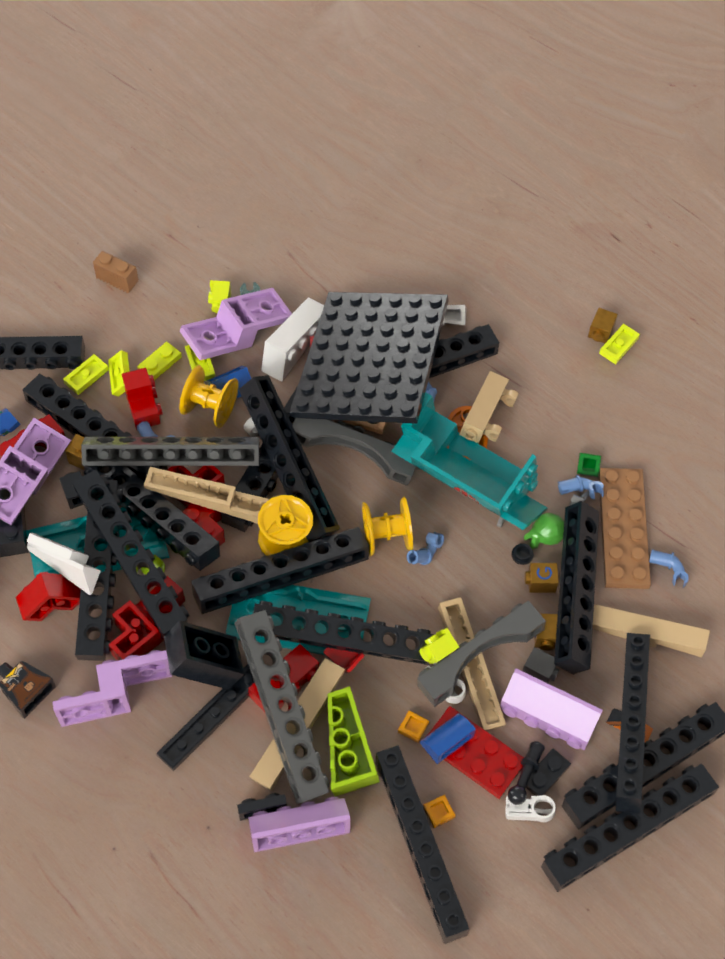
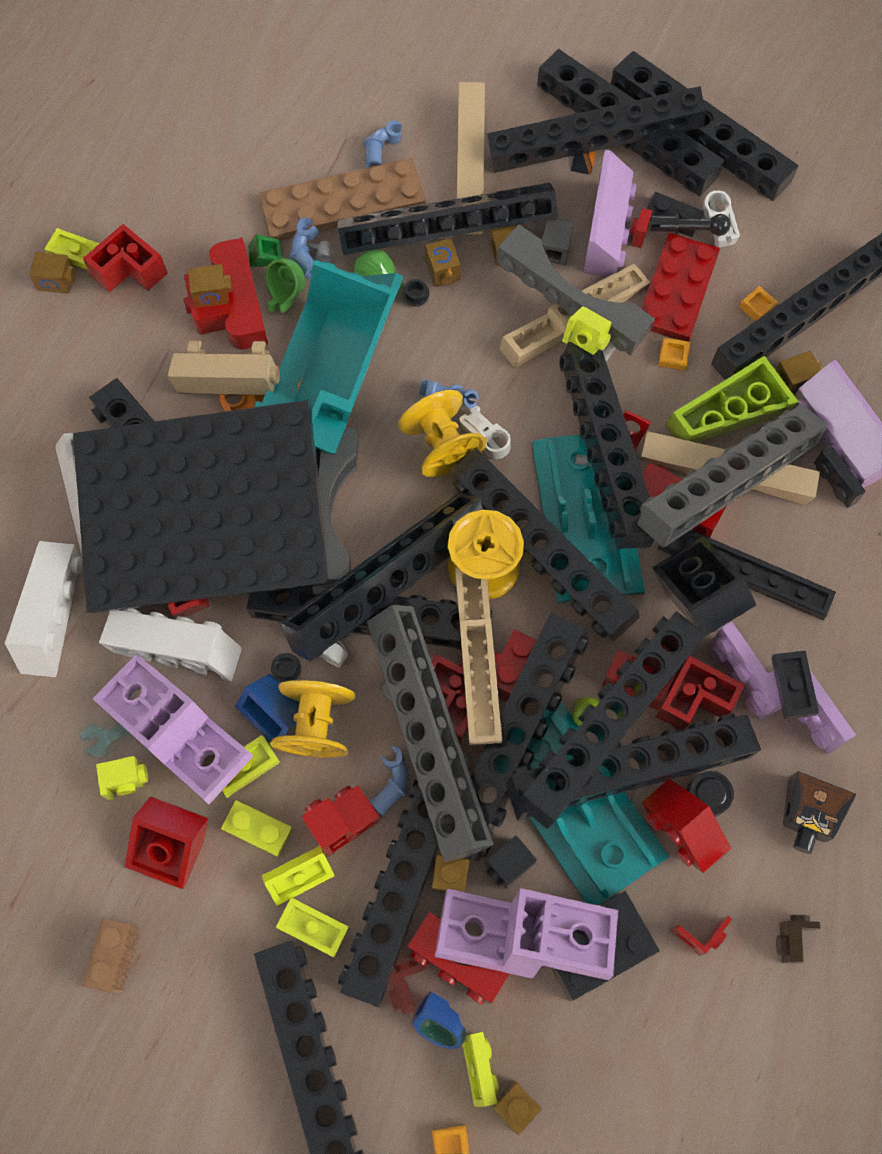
camera: 105 degrees left, 10 degrees up
(26, 409) = (400, 995): none -> clear red bracket
(63, 623) = (713, 790): none -> black wheel
(65, 561) = (639, 814): white wedge -> none
(103, 676) = (795, 684): none -> black plate
(171, 311) = (165, 842): none -> red slope
(342, 274) = (44, 609): none -> white wedge
(362, 812) = (798, 370): none -> pearl gold brick
(389, 565) = (479, 424): none -> white piece
(448, 738) = (684, 303): blue brick -> none
(535, 734) = (639, 227): none -> red plate
(552, 428) = (242, 314): none -> red brick
(553, 406) = (209, 285): none -> pearl gold brick
(553, 467) = (284, 282): none -> bright green piece
(600, 368) = (124, 255): none -> red brick

